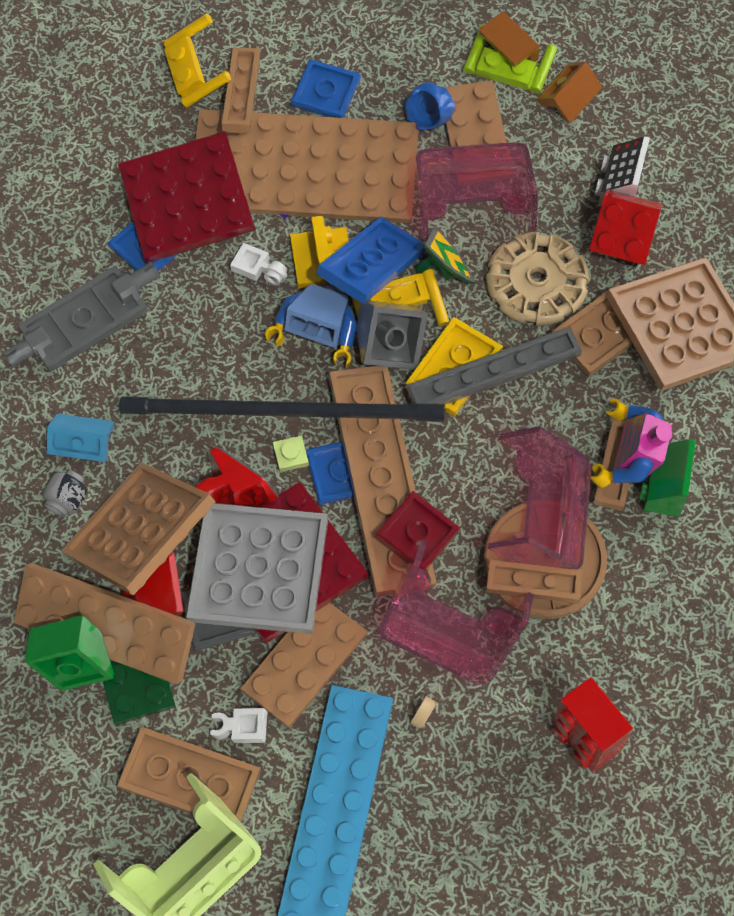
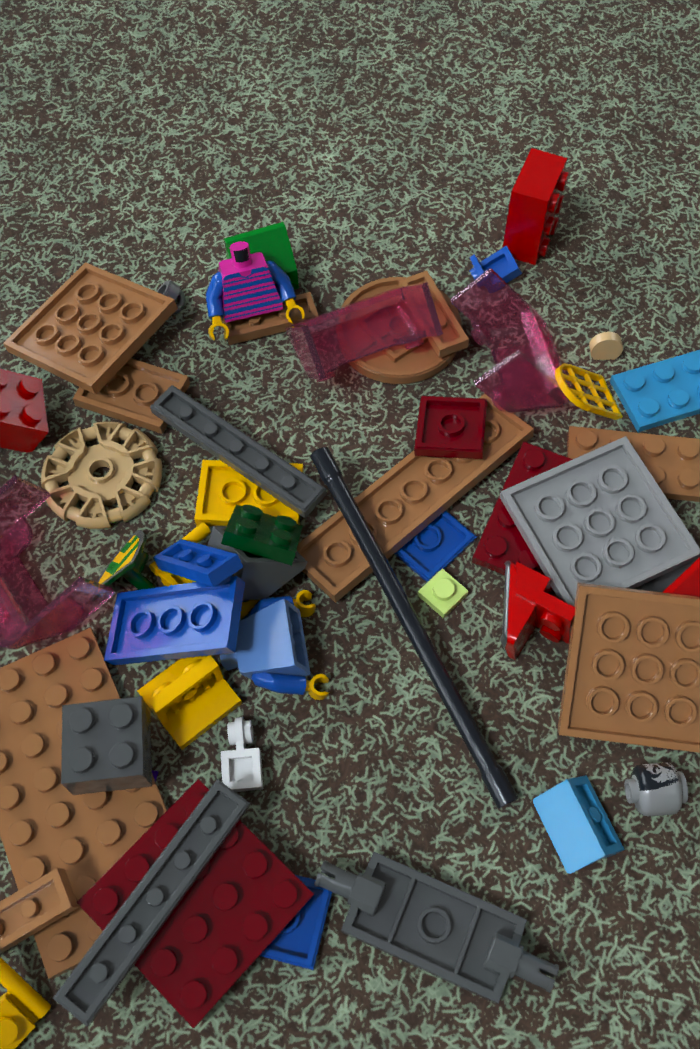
camera: 120 degrees left, 5 degrees down
(197, 169) = (151, 903): none -> dark grey tile
(309, 183) = (106, 746): none -> dark grey brick
(390, 665) = (572, 394): none -> yellow window
(399, 283) = (199, 563): none -> blue plate
(402, 343) = (262, 534): none -> dark green plate
(560, 672) = (501, 262): none -> blue bracket
(688, 397) = (173, 291): none -> flat silver tile

